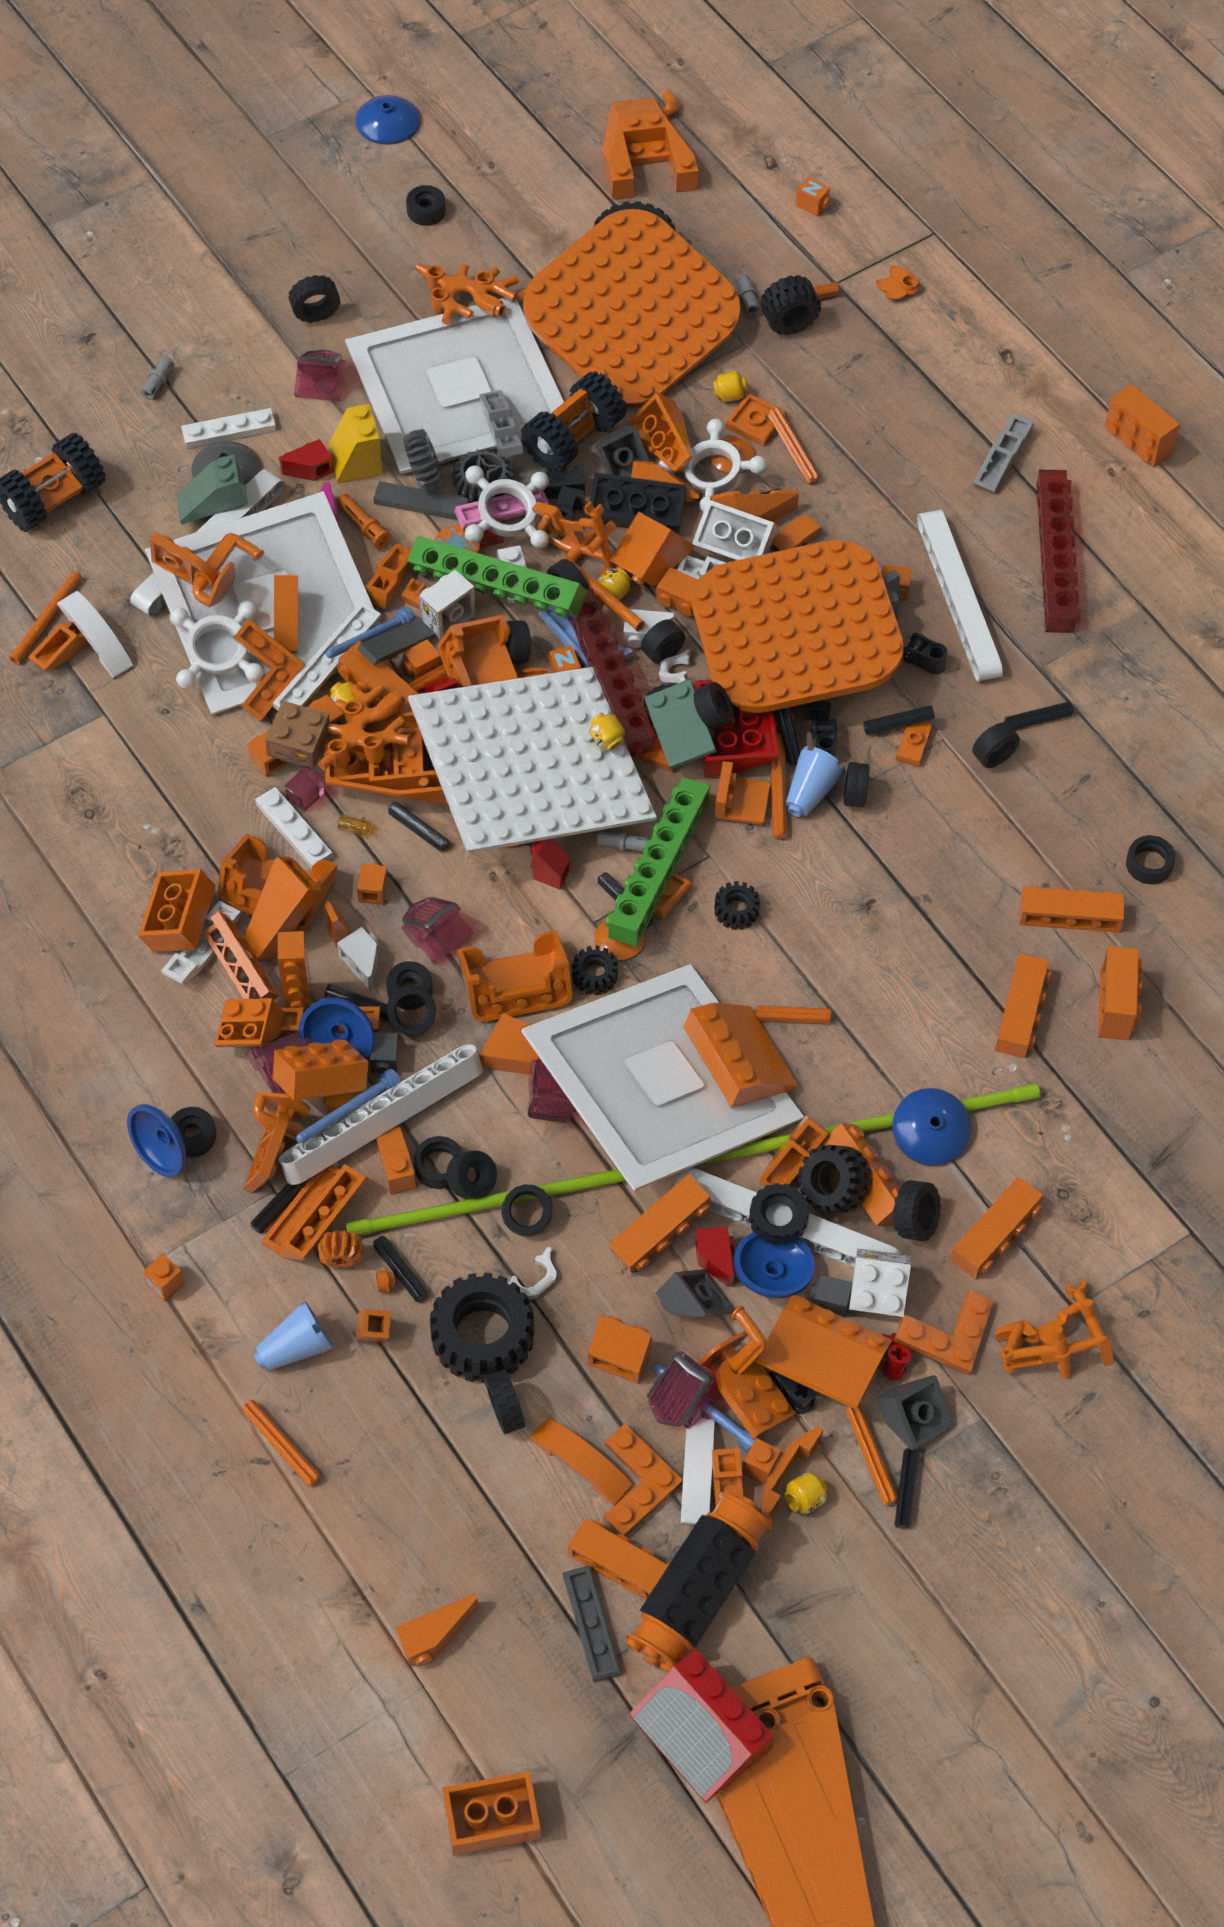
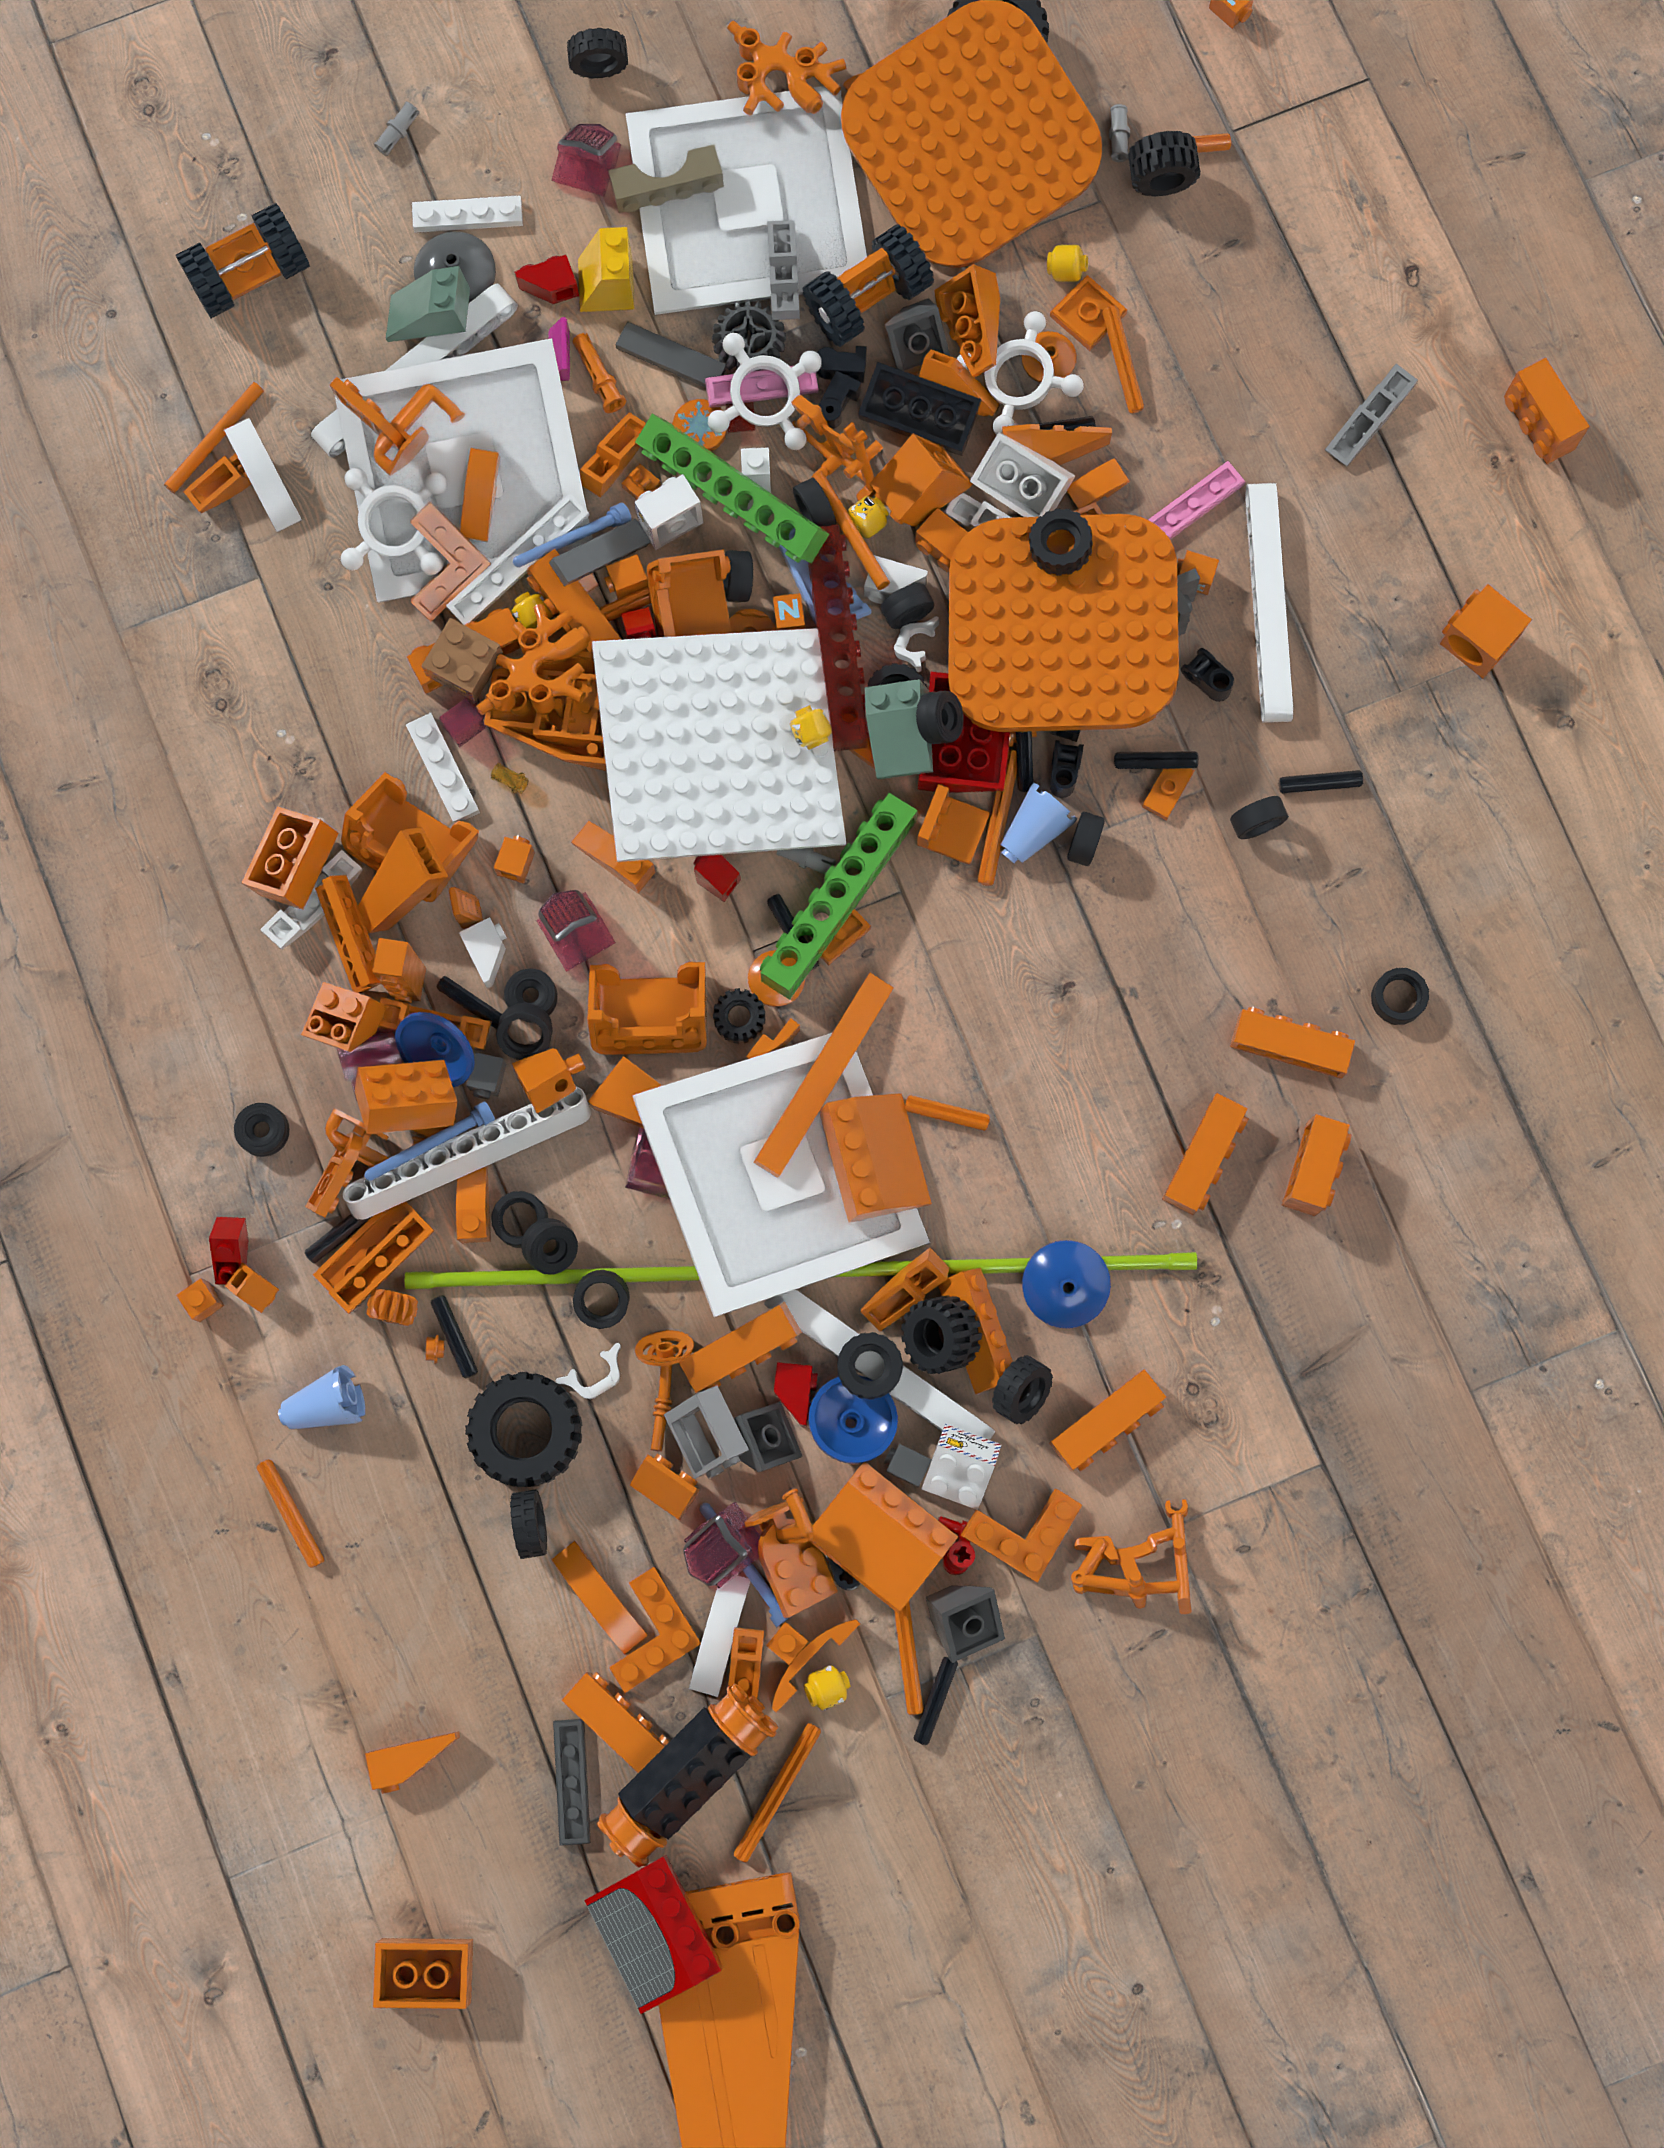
camera: 15 degrees right, 20 degrees up
(157, 1140) = (220, 1140): blue dish -> none
(182, 1234) = (228, 1247): none -> red slope
(210, 1257) = (252, 1288): none -> orange brick
(367, 386) = (636, 189): none -> dark tan arch
(373, 1325) = (409, 1404): orange brick -> none
(418, 826) = (581, 793): black axle -> none
(423, 460) = (679, 311): dark grey gear -> none
(439, 1040) = (547, 1077): none -> orange torso
(460, 867) = (601, 848): none -> orange slope
(594, 1244) = (664, 1358): none -> orange dish
(620, 1295) = (692, 1439): none -> light grey window
(640, 975) = (768, 1045): none -> orange slope
(680, 998) = (823, 1075): none -> orange tile
(740, 893) = (921, 948): black tyre -> none
(780, 550) = (1060, 520): none -> black tyre
(782, 1595) = (777, 1792): none -> orange axle
(886, 529) = (1198, 500): none -> bright pink tile
(899, 283) = (1302, 146): orange plate -> none
(1056, 551) = (1412, 469): clear red brick -> none
(1139, 582) = (1484, 630): none -> orange brick

